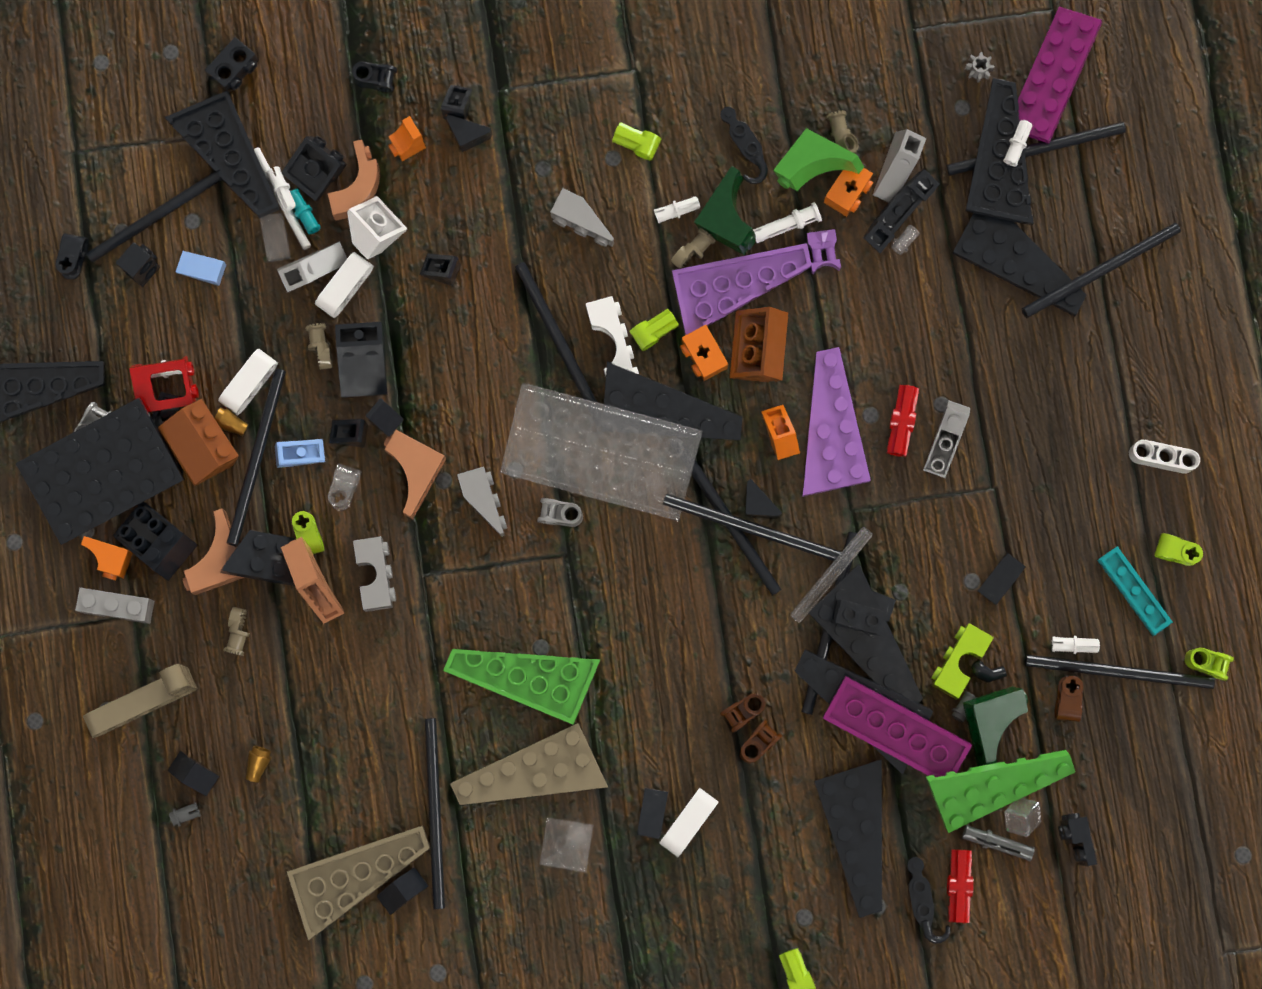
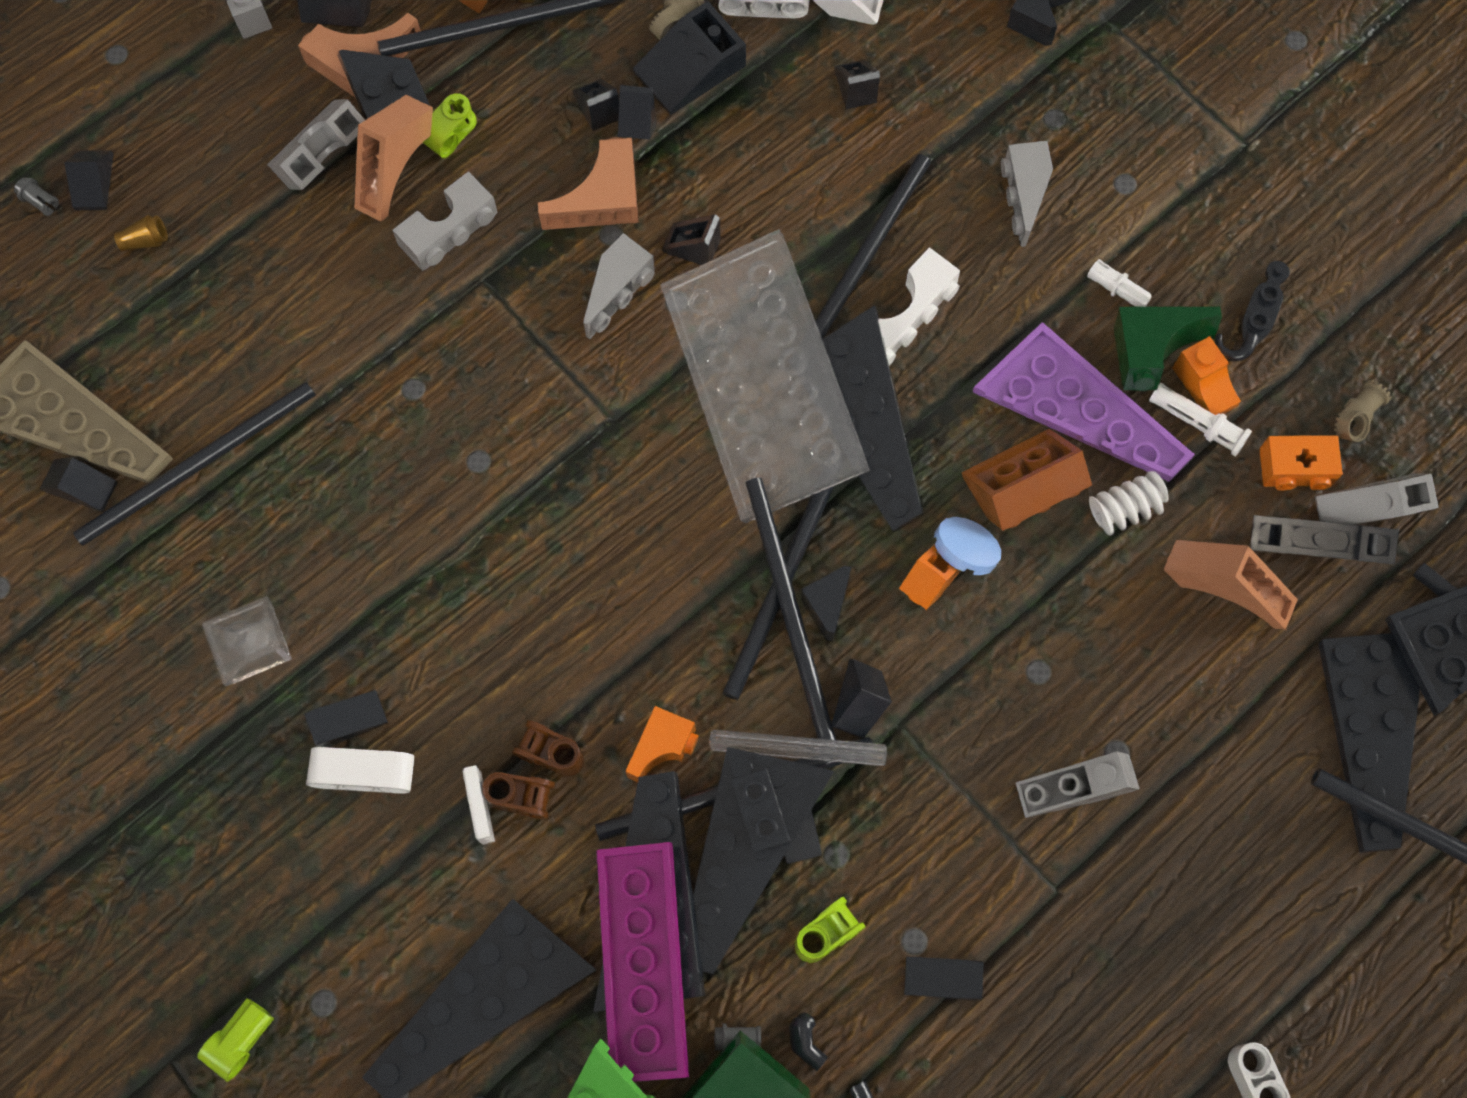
camera: 55 degrees right, 10 degrees down
(174, 684) = (167, 83): dark tan beam -> none
(237, 636) = (286, 123): dark tan connector -> none
(262, 606) = (302, 157): none -> light grey arch
(299, 452) = (538, 66): light blue slope -> none
(344, 482) = (530, 128): clear piece -> none
(483, 435) = (694, 239): none -> black slope
(538, 681) = (431, 482): bright green wing -> none
(545, 768) = (330, 557): dark tan wing -> none
(558, 513) = (655, 374): light grey piece -> none
(642, 143) = (1166, 198): lime piece -> none
(648, 333) = (947, 344): lime piece -> none
(694, 248) = (1072, 326): dark tan connector -> none
(703, 340) = (964, 438): orange brick -> none
(751, 768) = (478, 805): none -> white tile
(767, 202) = (1206, 377): none -> orange arch
(778, 405) = (967, 545): none -> light blue tile
(778, 645) = (662, 740): none -> orange arch
(810, 299) = (1129, 501): none -> white piece
(811, 157) = (1303, 391): bright green arch -> none
(823, 241) = (1210, 473): medium lavender piece -> none
(826, 522) = (861, 699): none -> black slope
(834, 442) = (973, 645): medium lavender wing -> none
(890, 276) = (1232, 574): none -> nougat arch
(902, 420) = (1060, 713): red piece -> none
(905, 239) = (1292, 571): clear pin -> none
(939, 618) = (834, 928): none -> lime piece
(949, 677) = (830, 988): lime arch -> none

